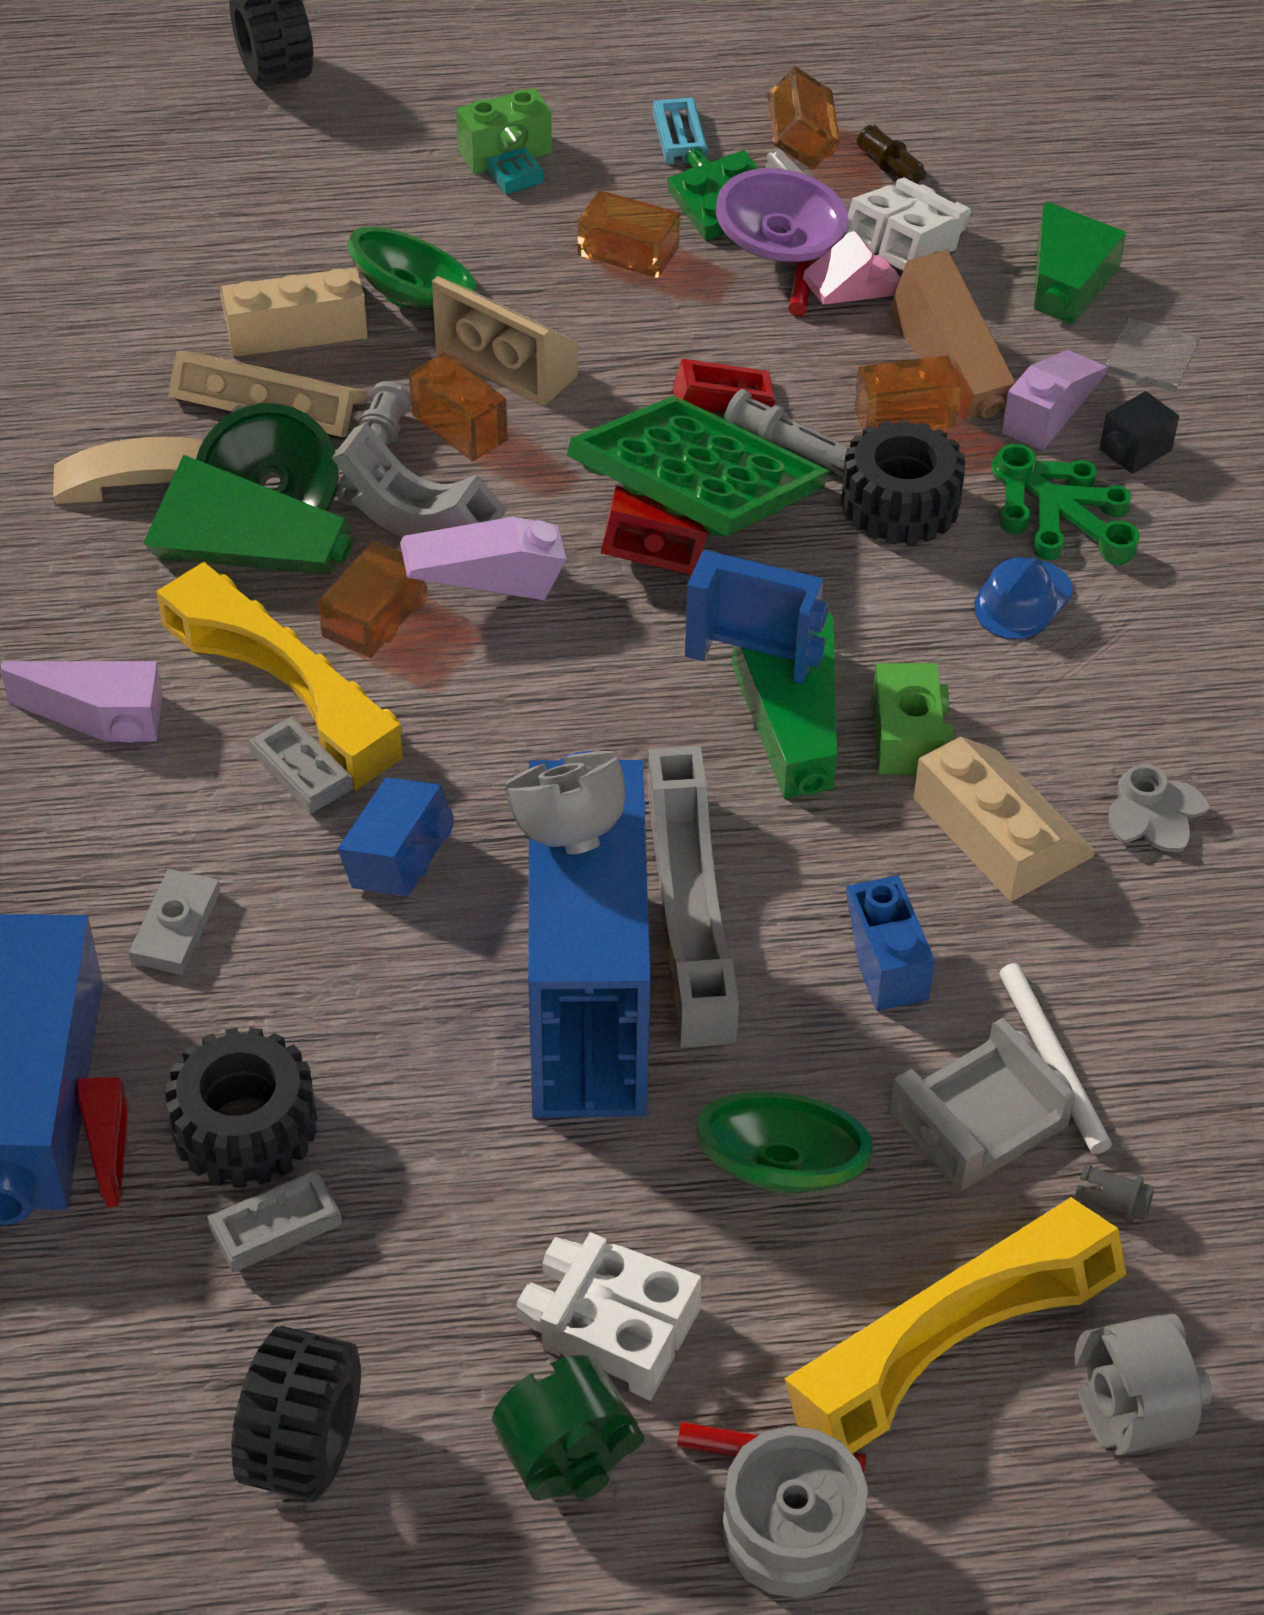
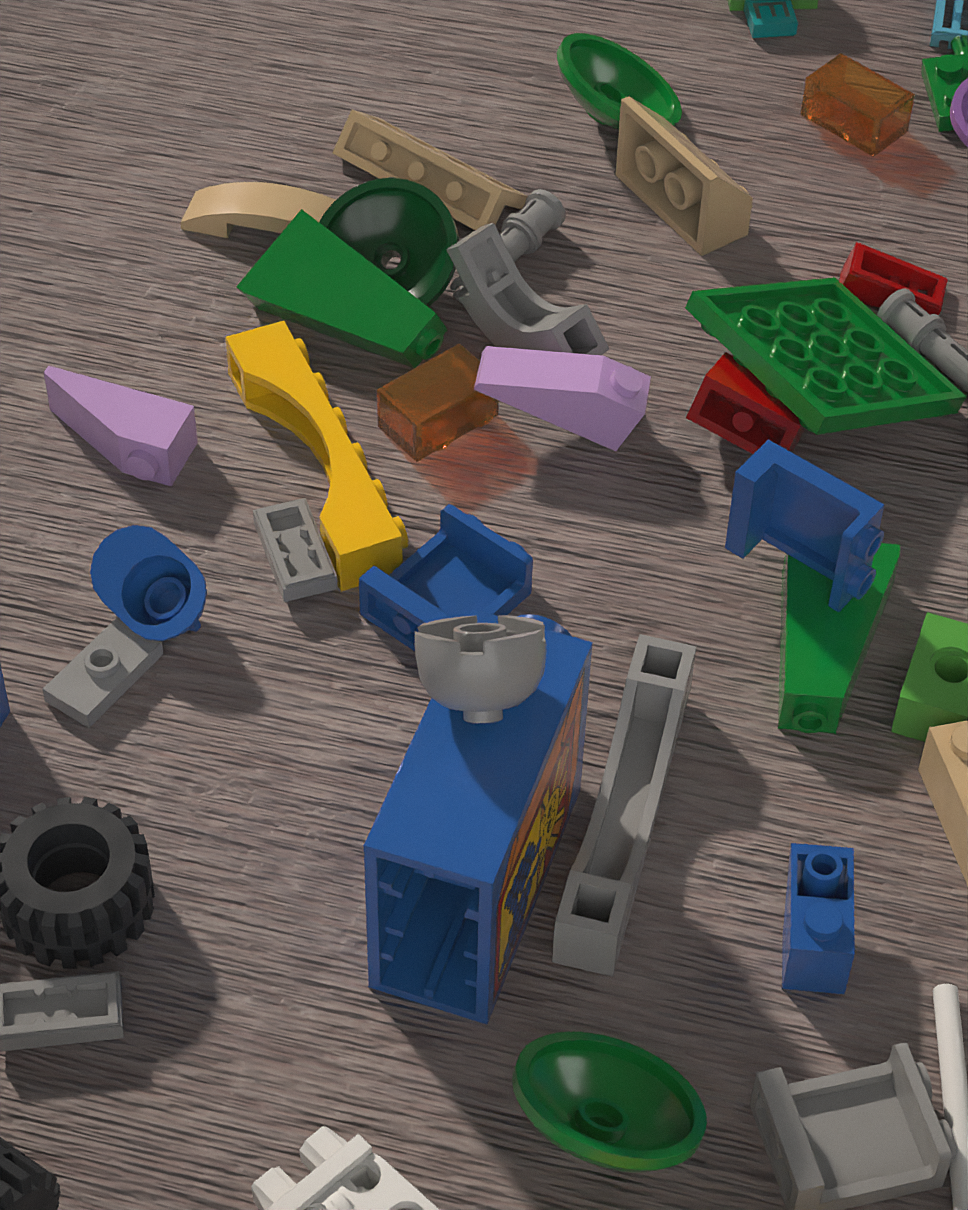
camera: 20 degrees right, 0 degrees up
(189, 829) = (149, 583): none -> blue piece
(294, 311) = (487, 100): tan slope -> none
(396, 836) = (350, 650): blue brick -> none
(458, 406) = (608, 233): clear orange piece -> none
(464, 748) = (447, 578): none -> blue panel

